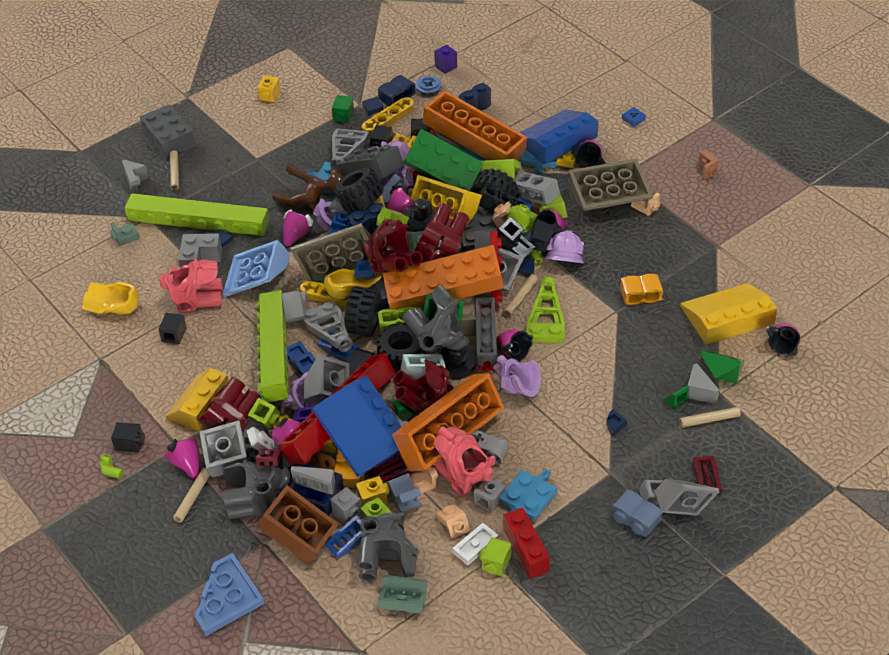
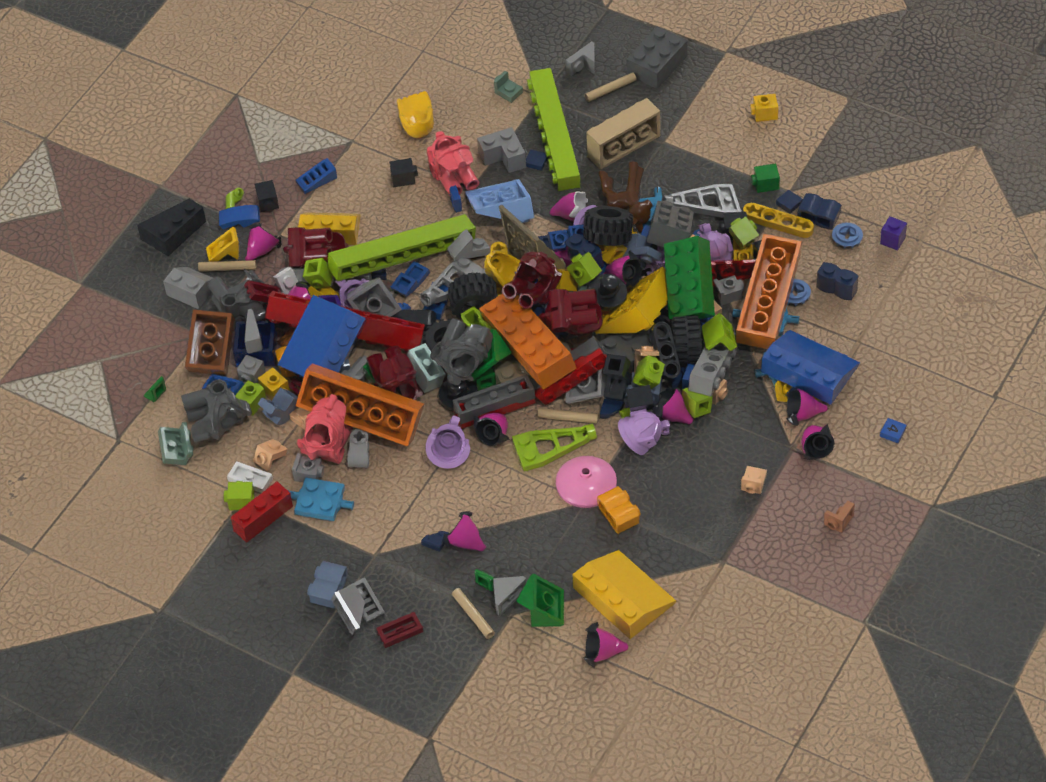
camera: 70 degrees right, 5 degrees up
(114, 526) = (173, 226): none -> black wedge
(128, 381) = (325, 168): none -> blue slope
(135, 467) = (241, 215): none -> blue slope
(171, 485) = (224, 245): none -> yellow slope
(201, 531) = (187, 286): none -> light grey slope
(223, 447) = (269, 258): light grey slope -> none
(226, 596) = (135, 329): medium blue plate -> none
(231, 299) = (455, 199): none -> blue tile
(240, 170) = (623, 133): none -> tan brick
(317, 597) = (156, 390): none -> green slope
(400, 129) = (743, 232): none -> lime brick
(596, 304) = (581, 488): none -> bright pink dish
(608, 185) = (750, 436): dark tan slope -> none
(621, 396) = (465, 534): none -> dark pink hat
(626, 151) = (817, 442): none -> black hat

